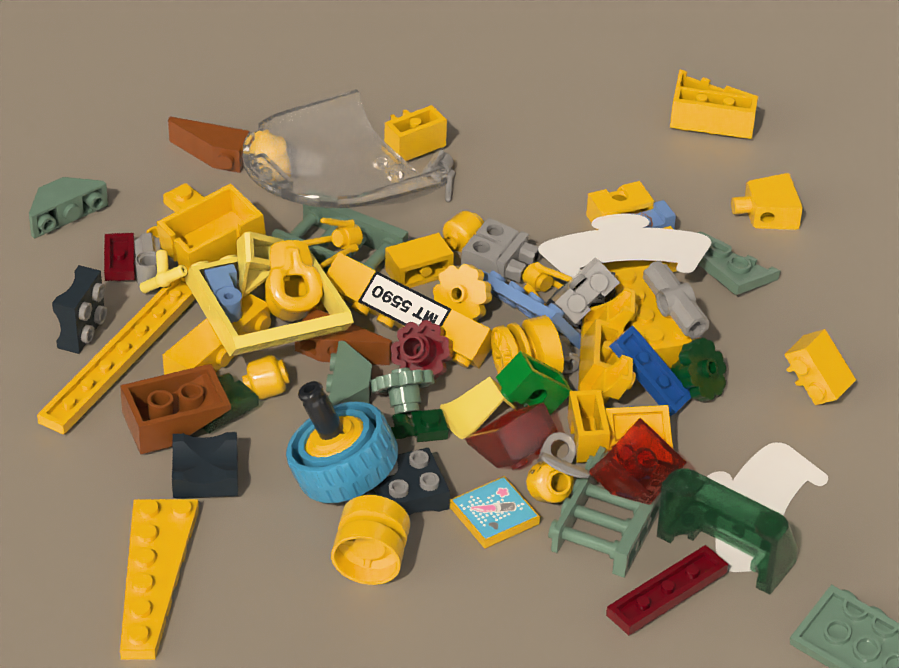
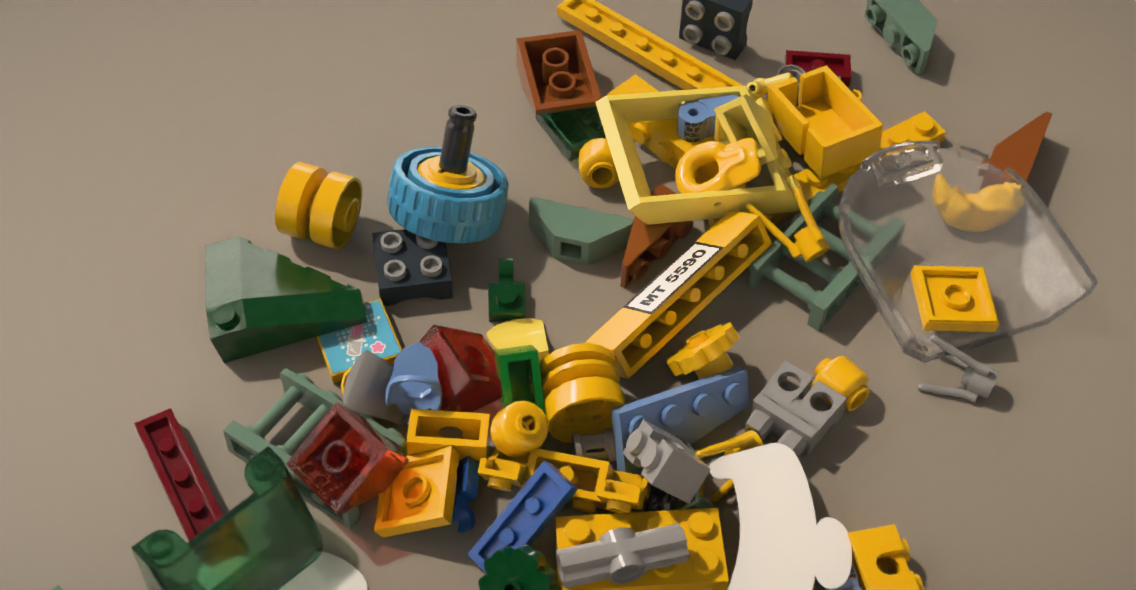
camera: 100 degrees right, 10 degrees up
(155, 557) = (409, 71): yellow wing -> none
(205, 466) = (485, 93): black brick -> none
(375, 168) = (954, 299): none -> yellow tile
(403, 388) = (553, 270): sand green plant -> none
(416, 132) = (1035, 351): yellow brick -> none
(418, 260) = (785, 326): yellow brick -> none
(422, 348) = (606, 292): dark red plant -> none
(473, 571) = (268, 302): none -> dark green slope
(552, 440) = (414, 380): none -> medium blue piece
(582, 368) = (519, 428): none -> yellow head

